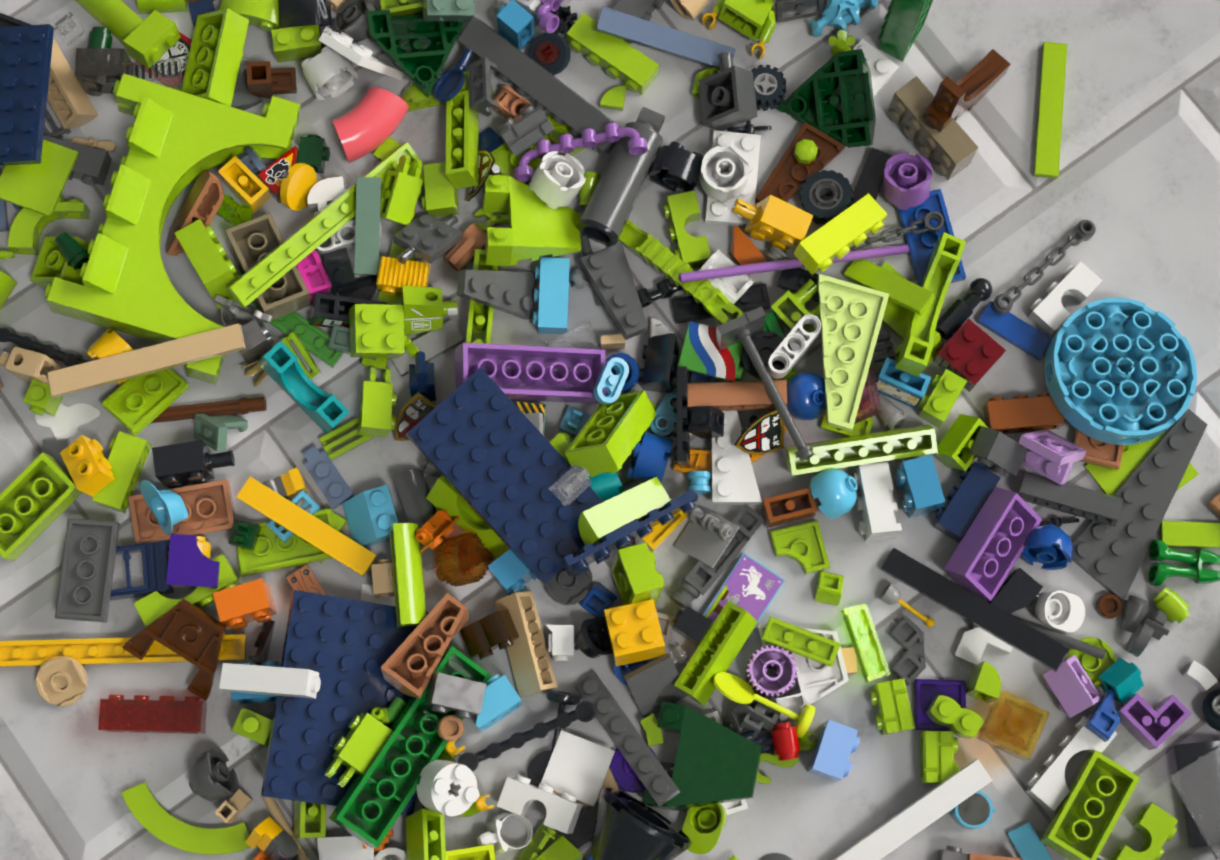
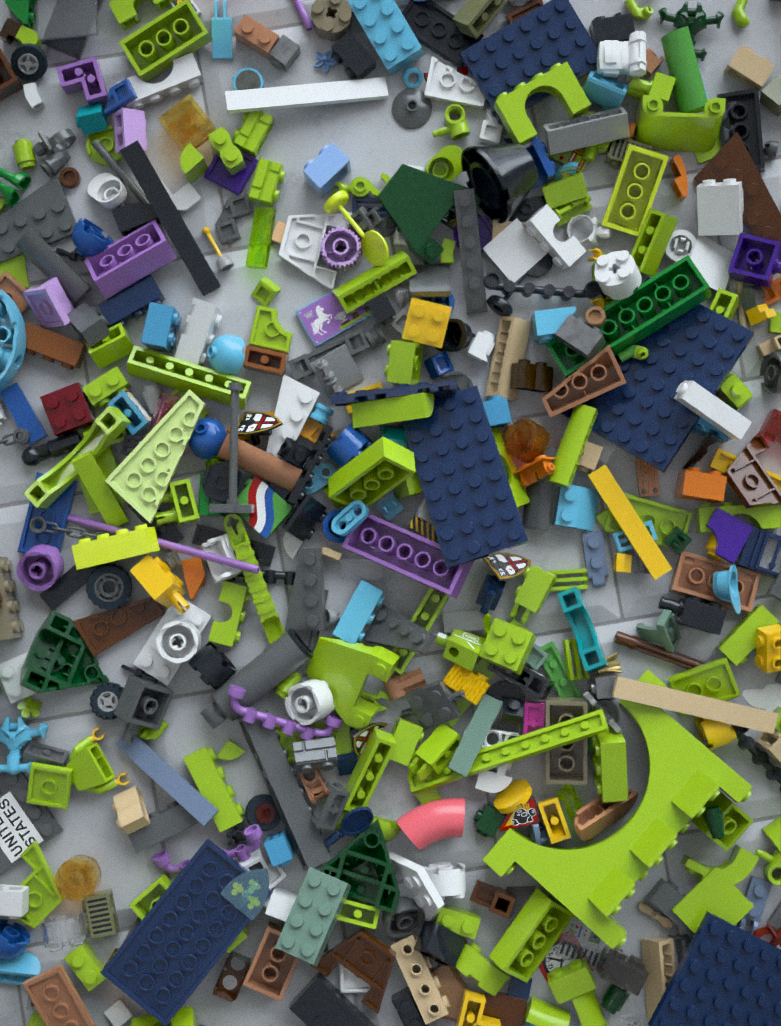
camera: 150 degrees left, 10 degrees up
(358, 747) = (668, 335): lime hinge -> none
(571, 484) = (422, 445): clear brick -> none
(785, 741) = (357, 192): red brick -> none
(798, 336) = (188, 474): white beam -> none
(800, 641) = (308, 259): lime tile -> none
(805, 151) = (106, 630): lime tile -> none

